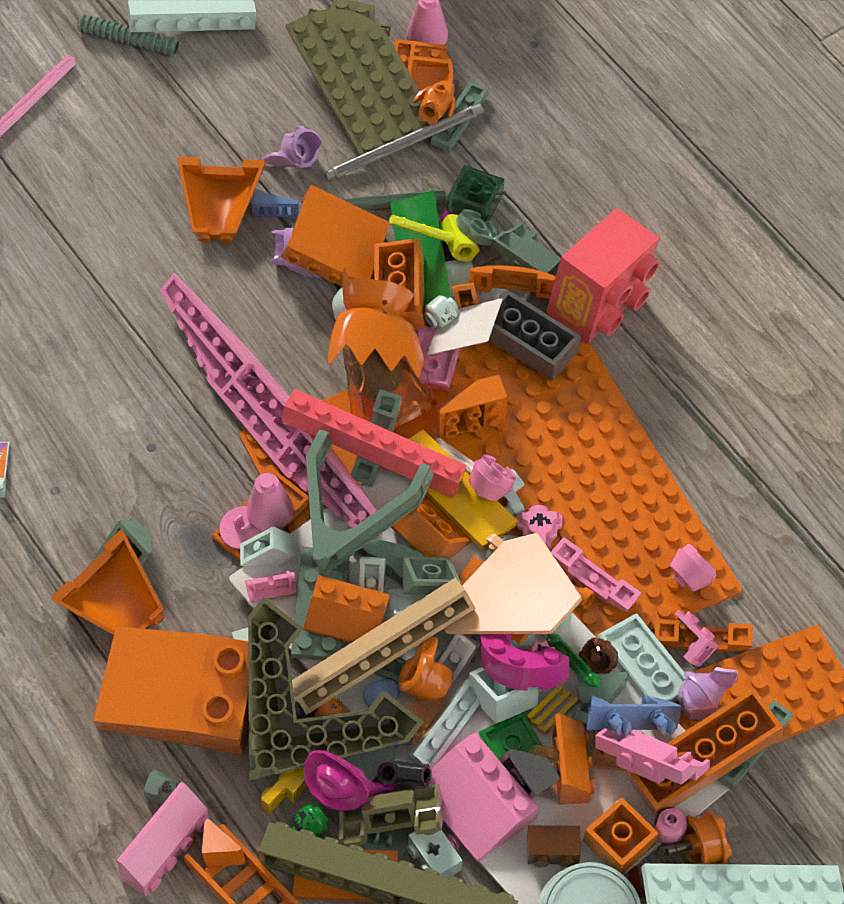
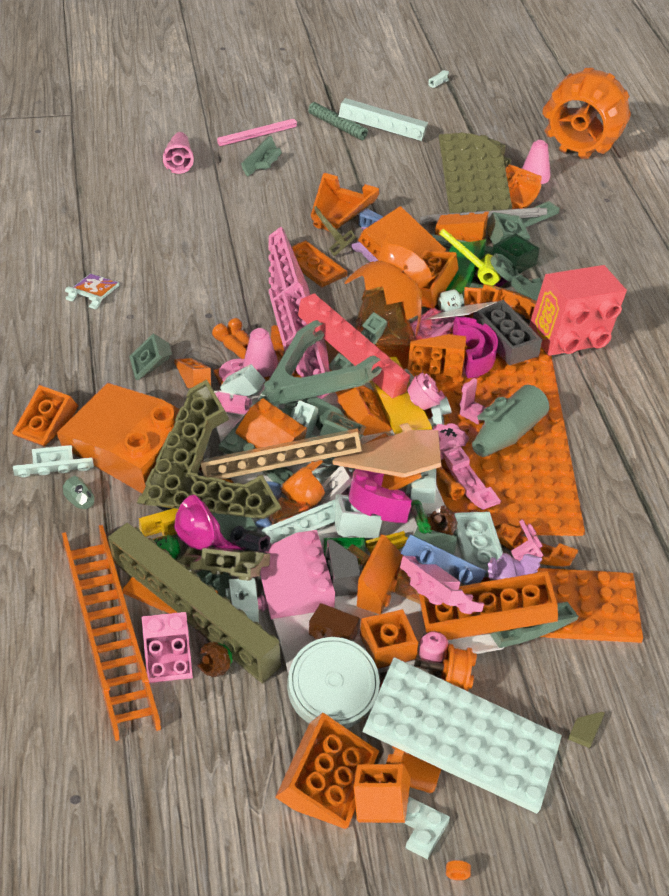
camera: 25 degrees right, 15 degrees down
(55, 699) = (45, 416): none -> orange slope
(68, 144) = (261, 157): none -> sand green bracket
(105, 756) = (53, 460): none -> light aqua bracket
(113, 590) = (126, 368): orange cone -> none
(162, 840) = (52, 514): bright pink slope -> none
(192, 552) = (193, 371): none -> orange slope
(217, 478) = (232, 337): none -> orange piece
(219, 848) = (88, 537): orange slope -> none
(238, 307) = (317, 265): none -> orange tile
(244, 253) = (337, 236): none -> olive piece
(297, 149) = (408, 197): lavender helmet -> none
(390, 176) = (464, 227): none -> orange wedge
(436, 101) = (516, 196): orange animal -> none
(444, 157) = (505, 225): none -> sand green slope
(513, 363) = (483, 344): none -> dark pink brick
(543, 468) = (469, 408): none -> bright pink bracket
(601, 474) = (510, 419): none -> sand green piece
(691, 569) = (547, 498): bright pink cone -> none

